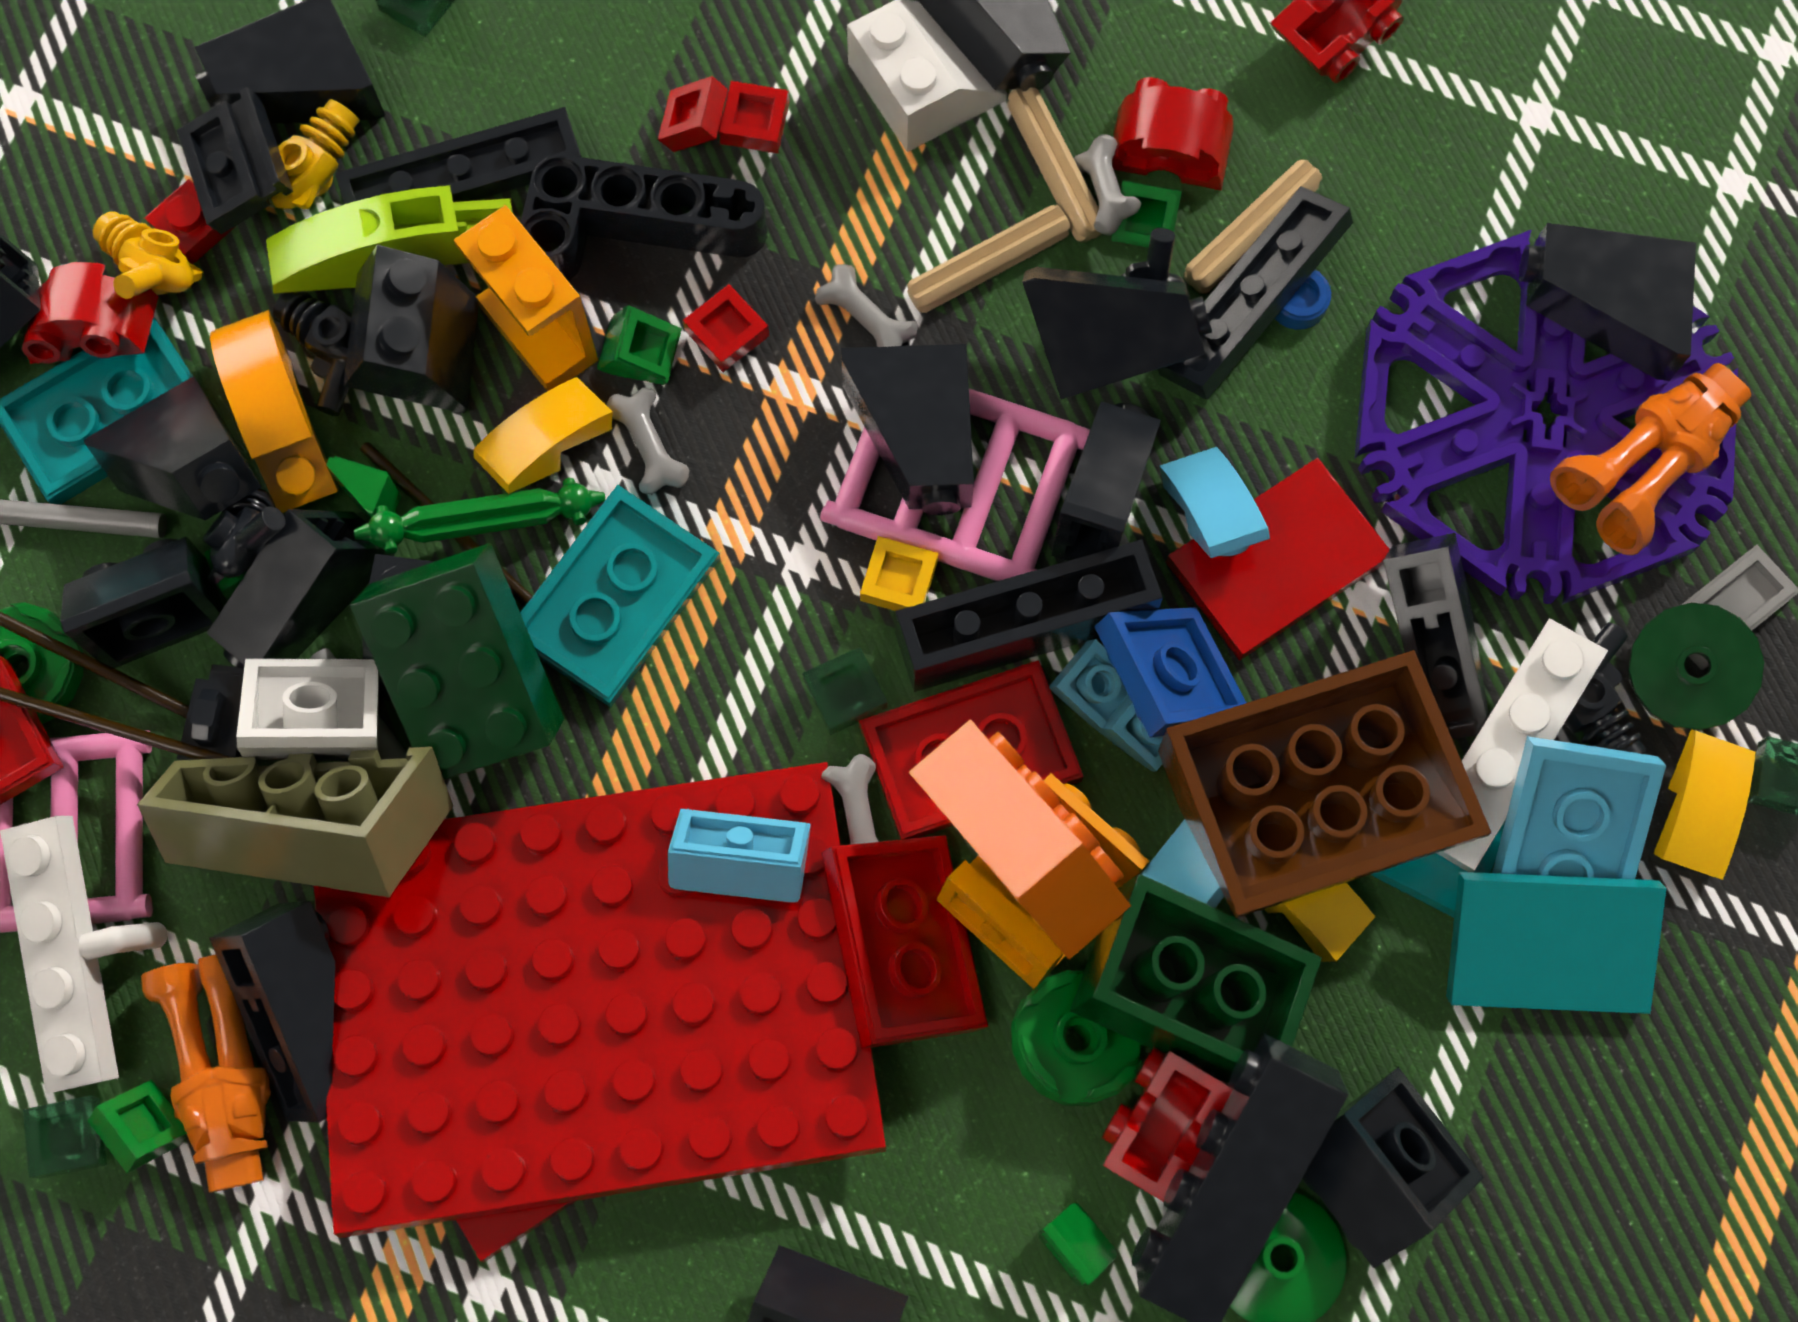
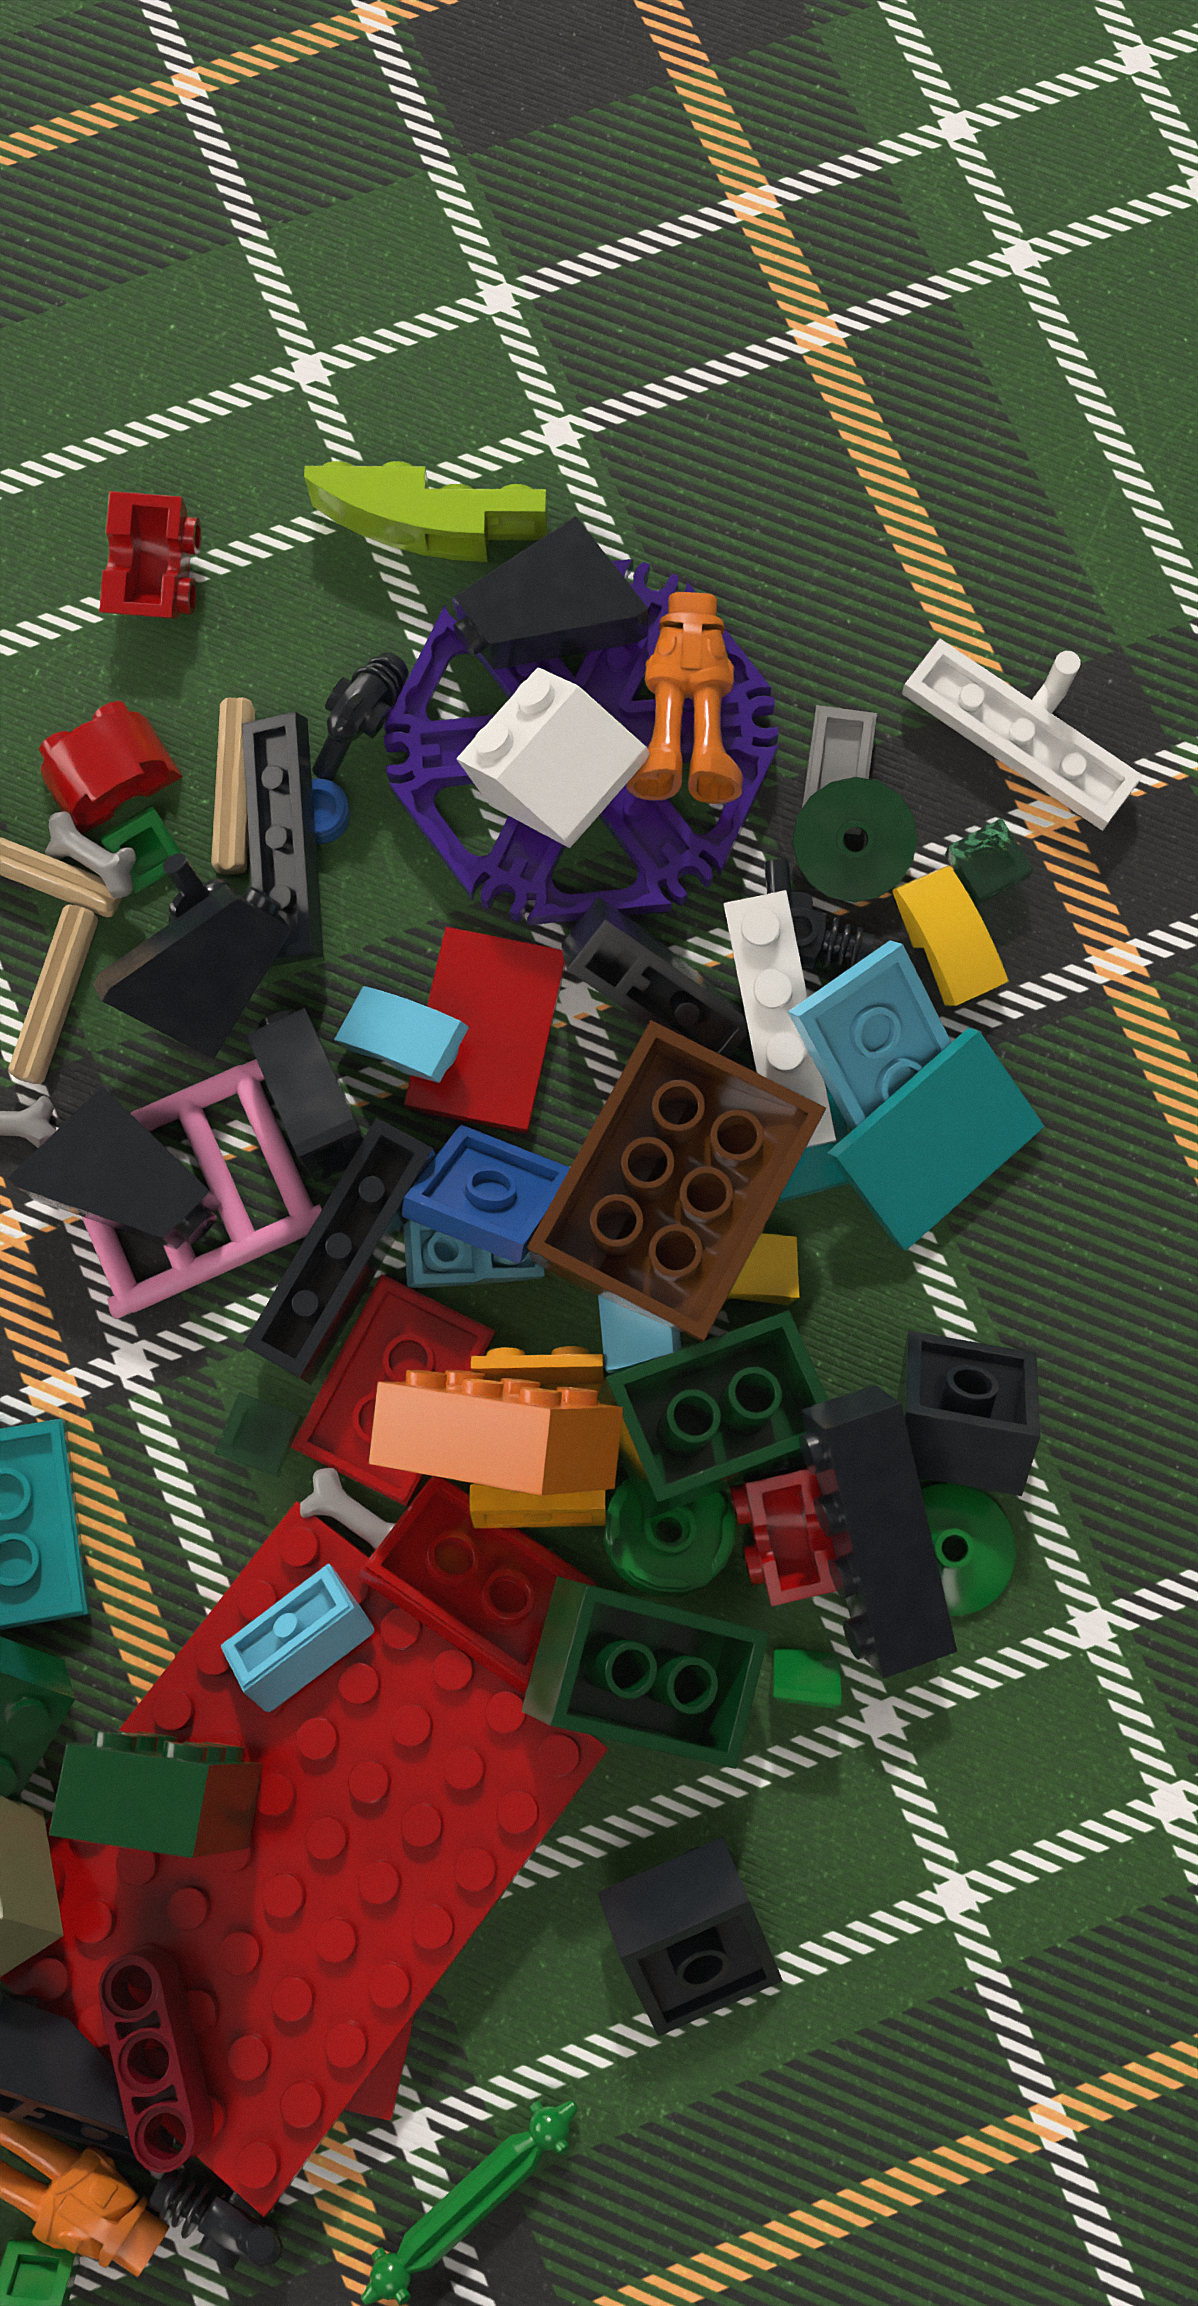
camera: 40 degrees left, 5 degrees up
(302, 1219) = (228, 2225): none -> black piece
(369, 1079) = (142, 2092): none -> dark red beam
(547, 856) = (156, 1794): none -> dark green brick
(898, 575) = (217, 1308): yellow plate -> none
(967, 1117) = (645, 1673): none -> dark green brick
(1398, 248) = (359, 708): none -> black piece
(1515, 399) = (552, 757): none -> white slope
(1563, 143) = (401, 511): none -> lime slope

